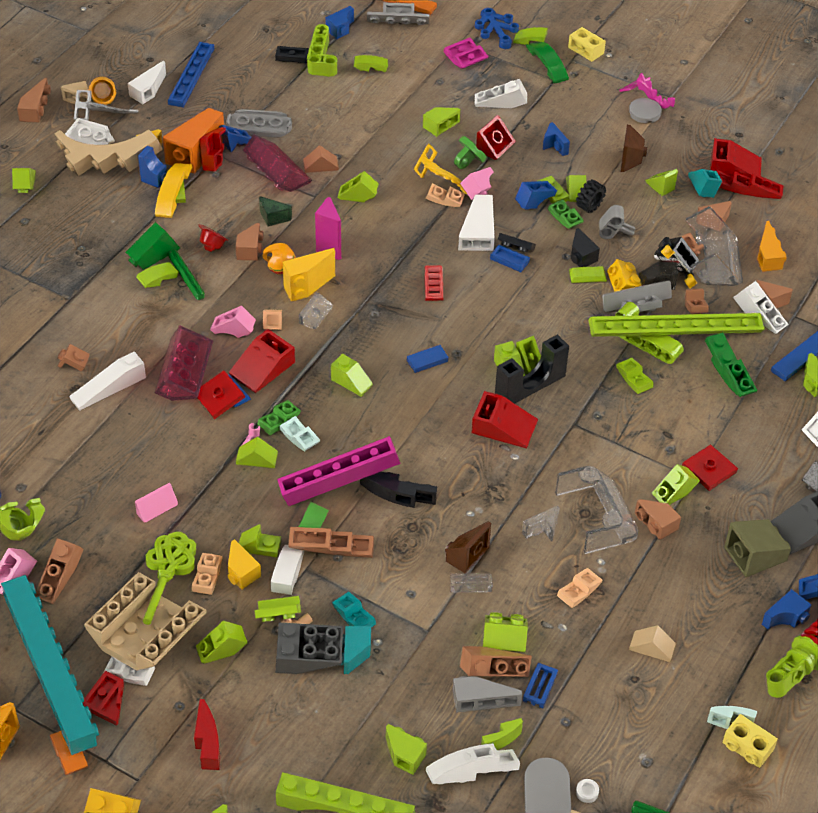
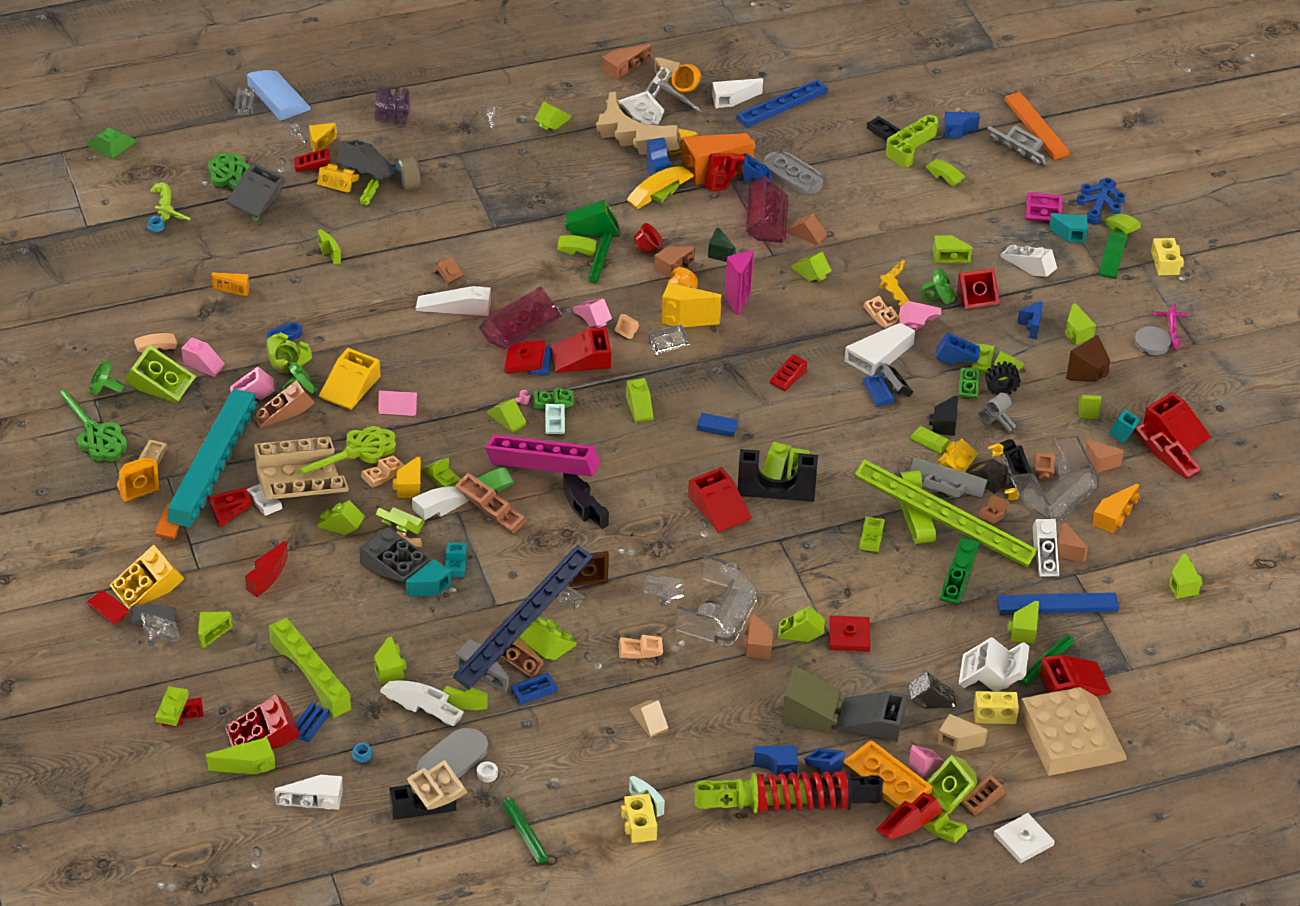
camera: 40 degrees right, 5 degrees down
(49, 538) = (302, 377): none -> bright green tile
(94, 507) = (351, 378): none -> yellow slope
(488, 630) = (522, 617): none -> dark blue plate
(501, 57) = (1069, 227): none -> teal slope
(588, 126) = (1079, 326): none -> lime slope

